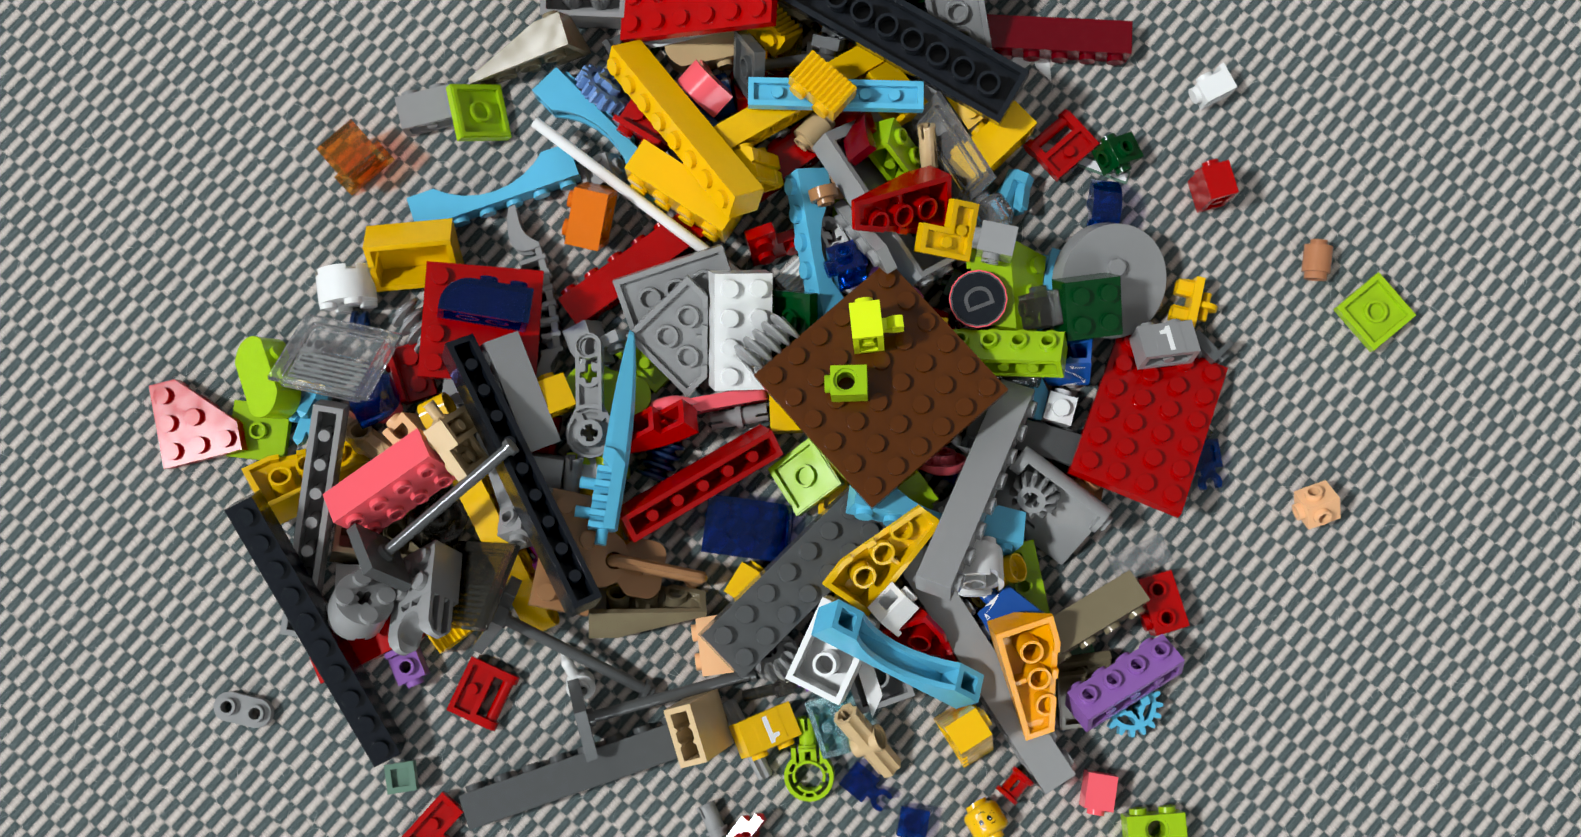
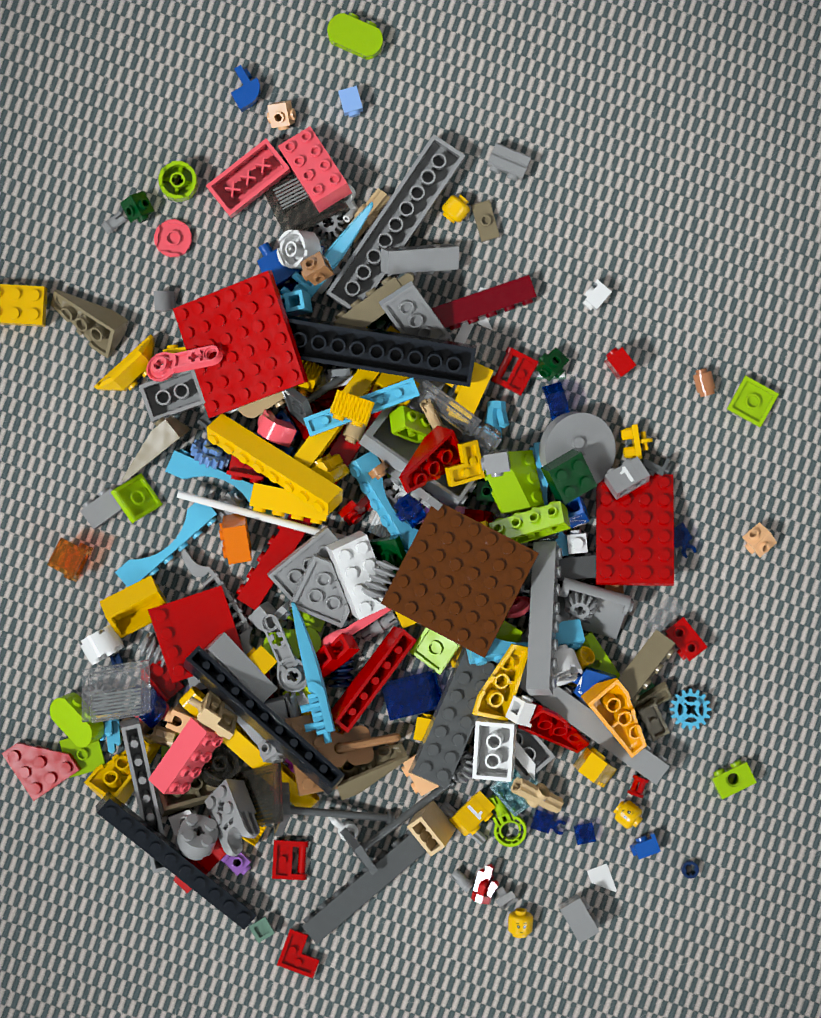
camera: 20 degrees left, 5 degrees up
(242, 709) = (146, 928): light grey plate -> none
(381, 556) = (198, 801): dark grey tile -> none
(487, 303) = (199, 622): clear blue brick -> none
(778, 689) = (470, 785): clear smoke bar -> none
(855, 635) = (504, 737): medium azure arch -> none
(858, 392) = (449, 588): lime brick -> none
(859, 140) = (386, 429): dark red slope -> none
(869, 325) = (439, 549): neon yellow brick -> none
(978, 299) = (499, 498): black tile -> none
(1040, 308) = (540, 490): clear smoke brick -> none
(1098, 792) = (690, 770): coral brick -> none
(1124, 682) = (679, 698): medium lavender brick -> none

